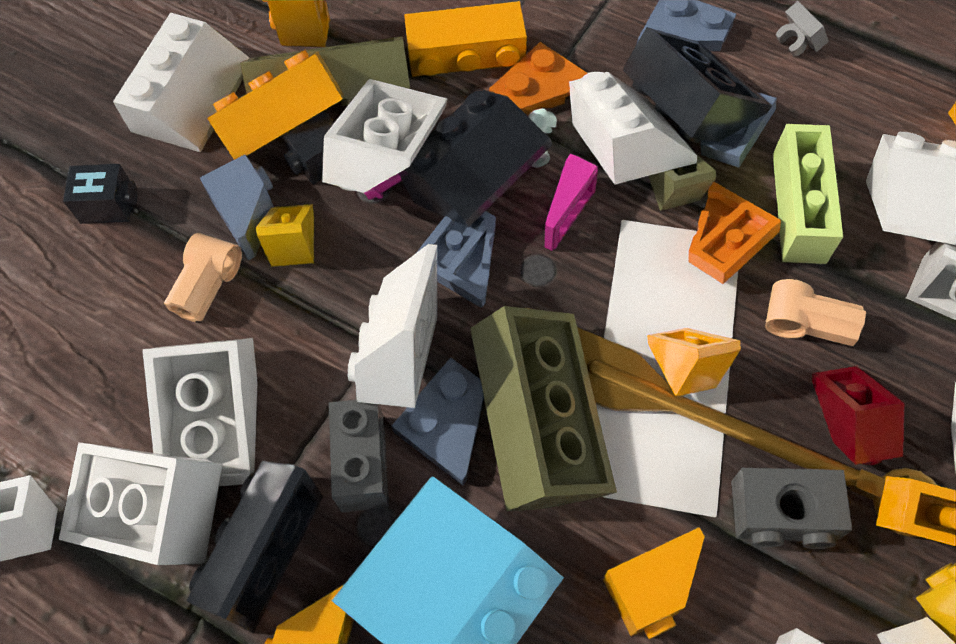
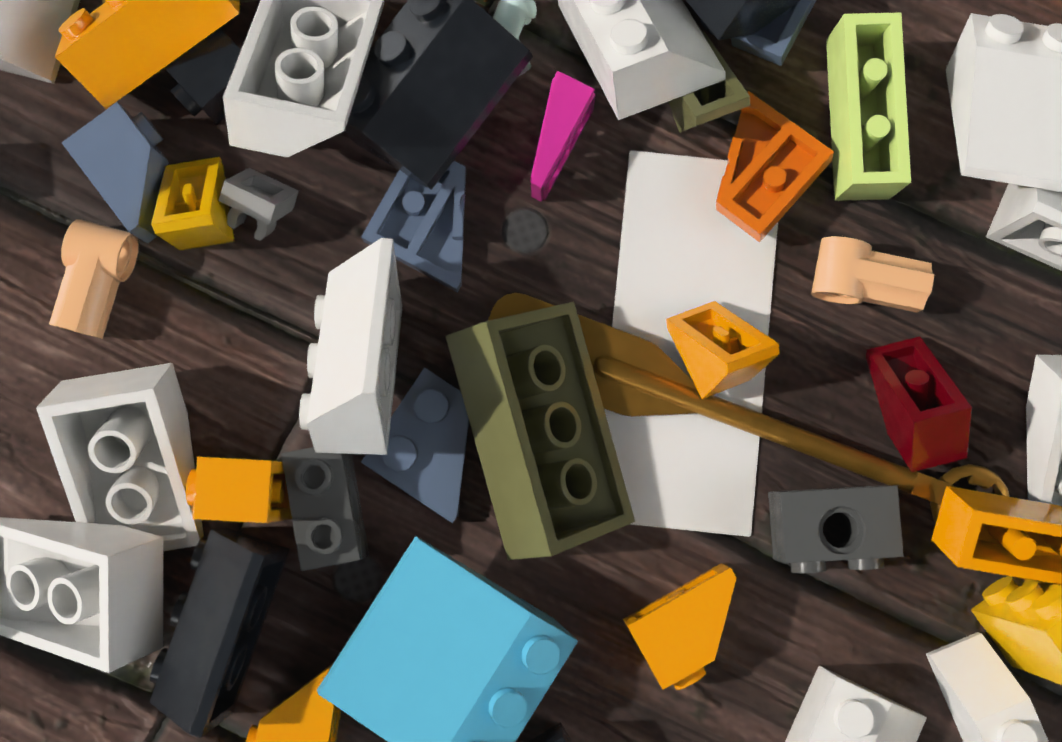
camera: 10 degrees left, 20 degrees up
(292, 428) = (238, 490): none -> light orange brick
(337, 229) = (258, 197): none -> light grey tile

